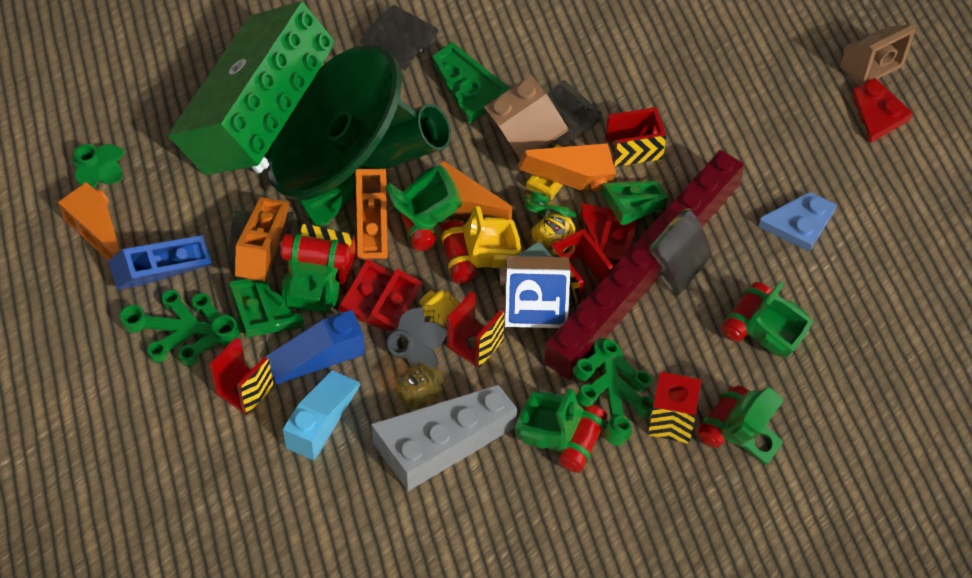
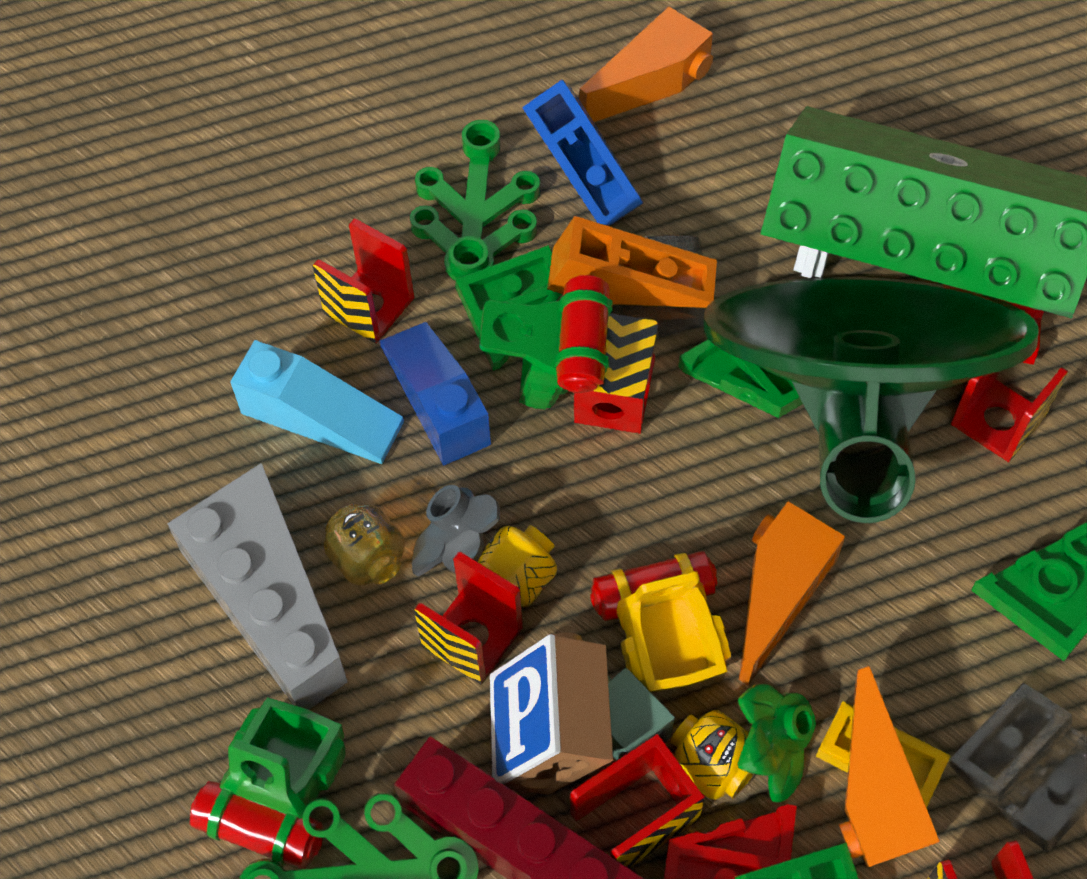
camera: 90 degrees right, 5 degrees up
(98, 164) = (770, 56): green plate -> none
(371, 214) = (724, 437): orange slope -> none
(380, 296) = (555, 473): red slope -> none
(425, 204) = (729, 509): green piece -> none
(526, 117) = (990, 684): medium nougat slope -> none

